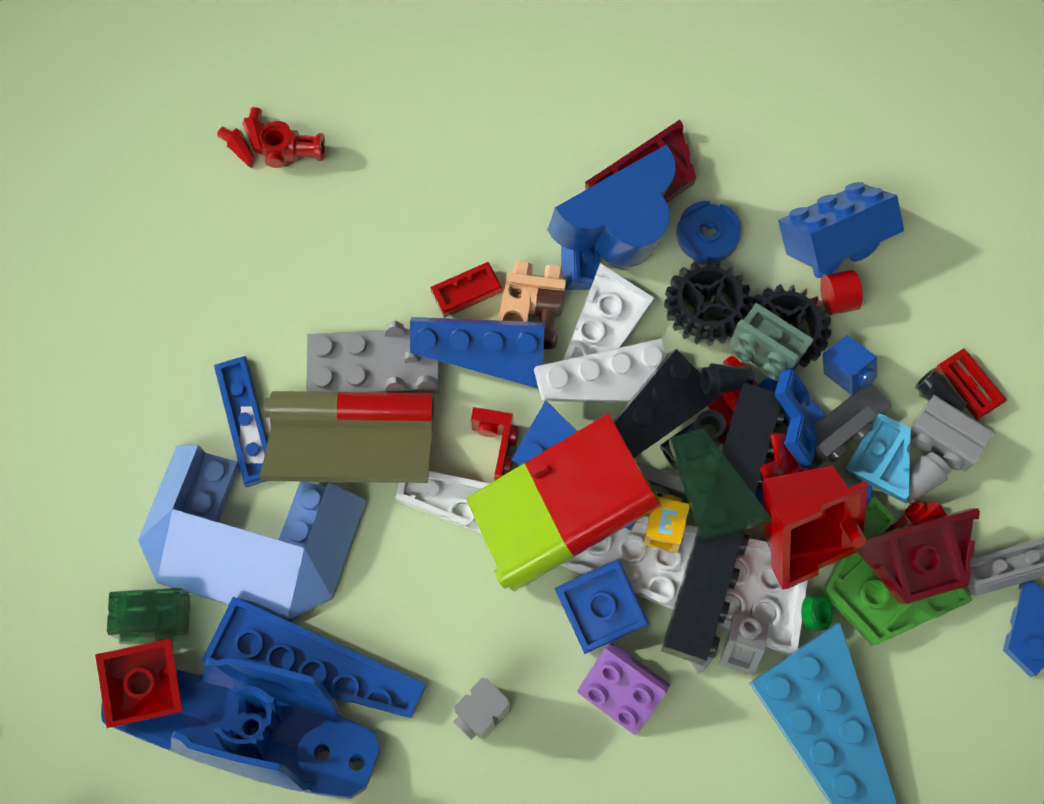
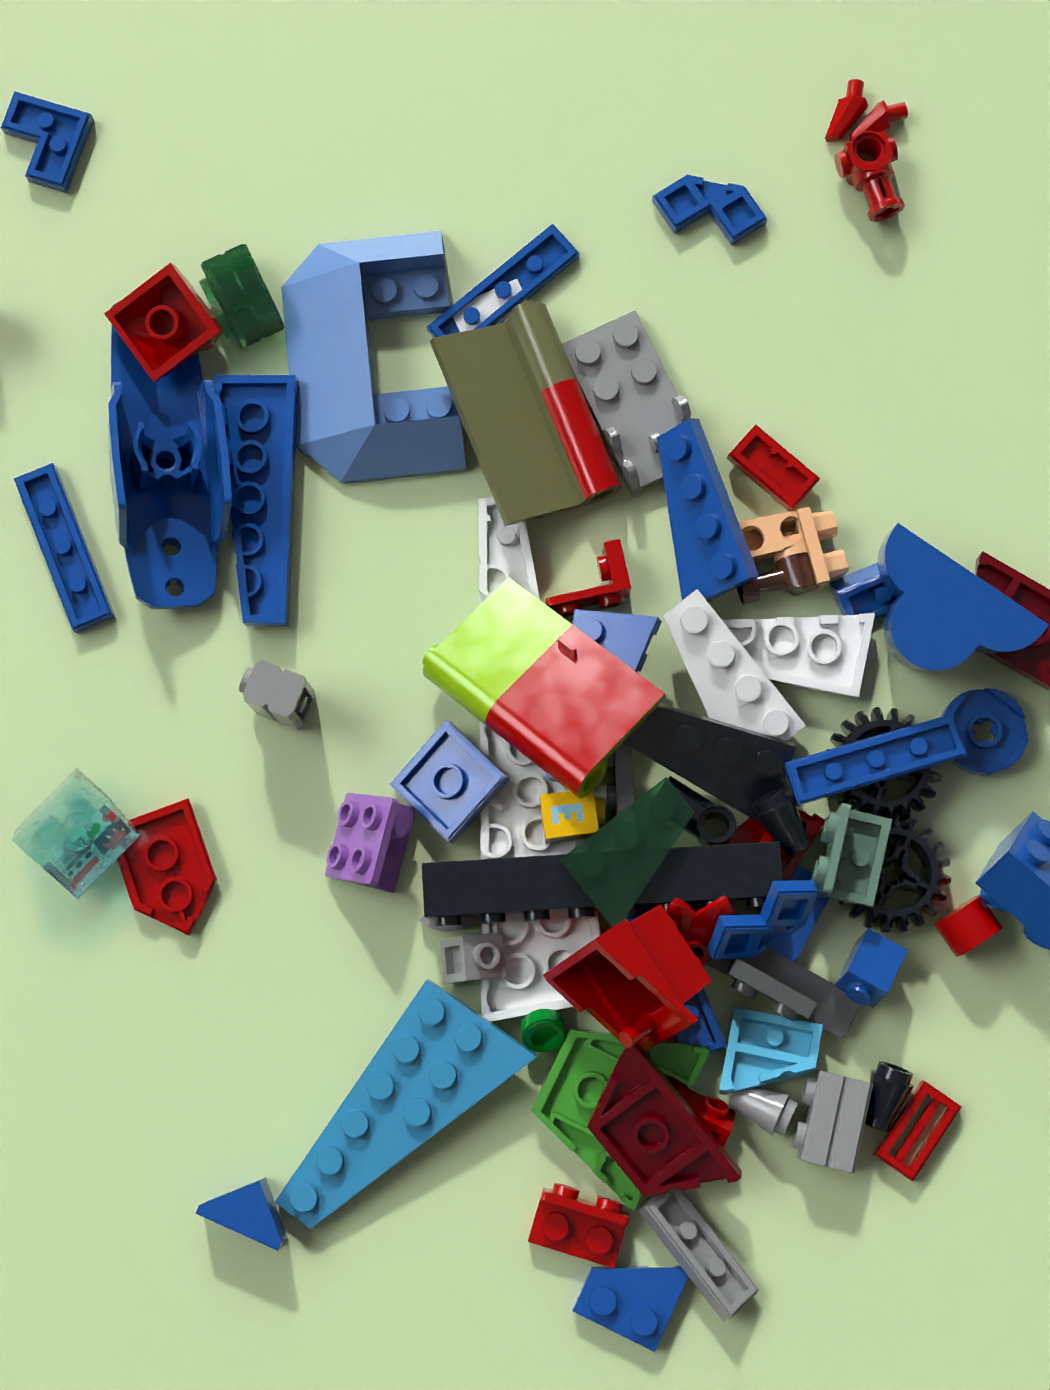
camera: 70 degrees right, 10 degrees up
(262, 244) = (728, 205): none -> blue tile
(706, 301) = (875, 759): none -> blue tile
(971, 646) = (578, 1225): none -> red bracket

